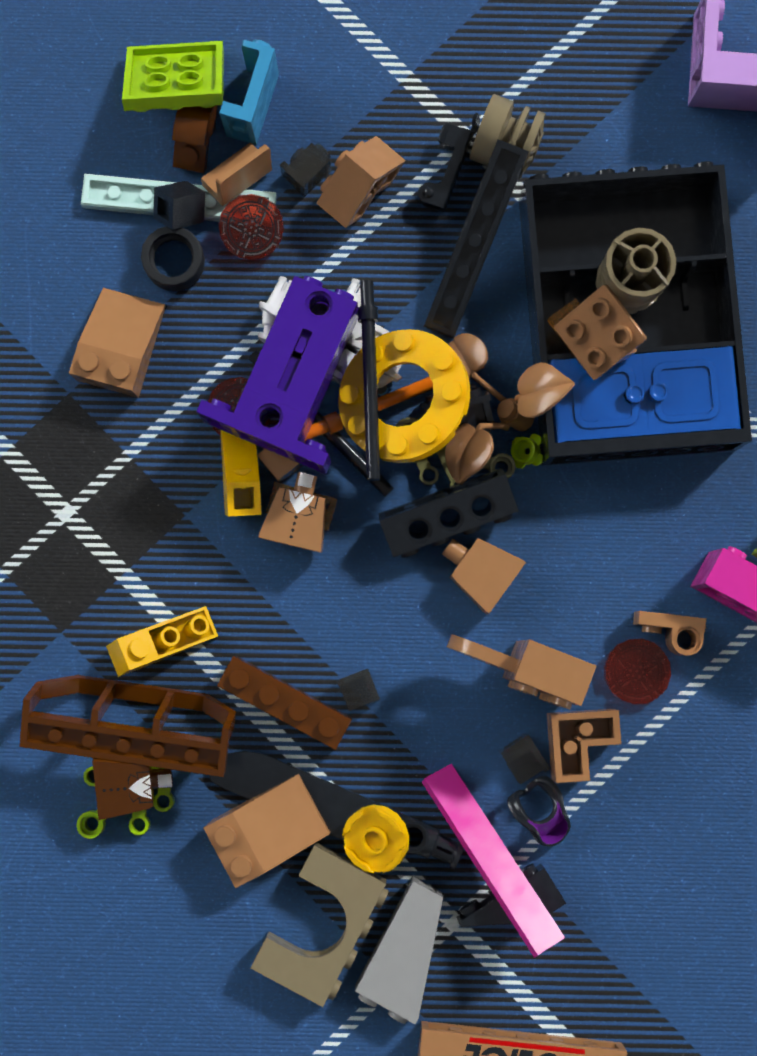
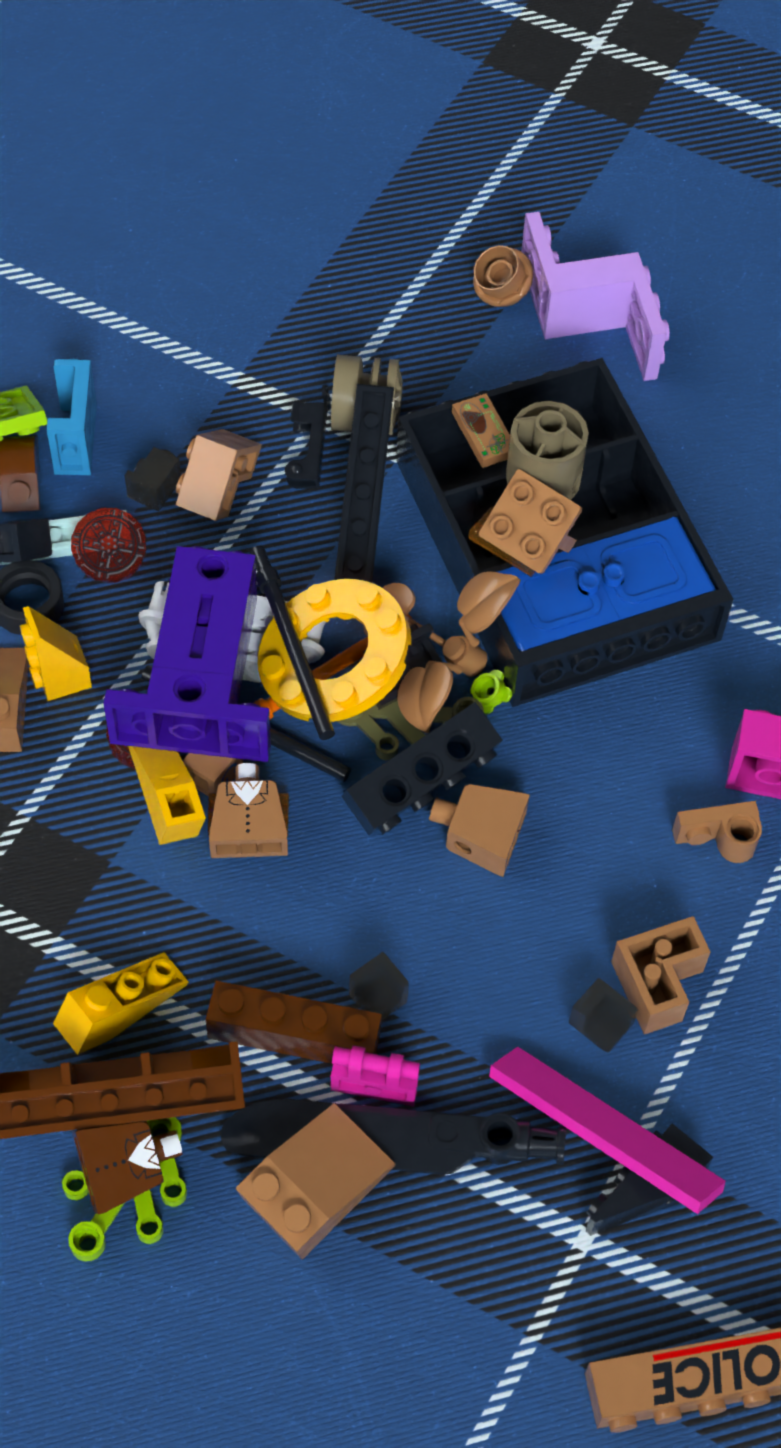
camera: 20 degrees left, 25 degrees down
(178, 330) = (53, 656): none -> yellow slope
(238, 173) = (80, 496): medium nougat panel -> none
(317, 972) = (425, 1342): dark tan arch -> none
(346, 769) = (374, 1075): none -> dark pink plate
(375, 839) = (454, 1147): yellow tile -> none
(402, 956) = (535, 1291): light grey slope -> none
(535, 669) = (586, 893): medium nougat brick -> none
(551, 829) = (663, 1082): black piece -> none
(593, 216) = (483, 429): none -> medium nougat tile
(637, 671) = (700, 887): clear red tile -> none
(670, 35) = (502, 276): none -> medium nougat piece

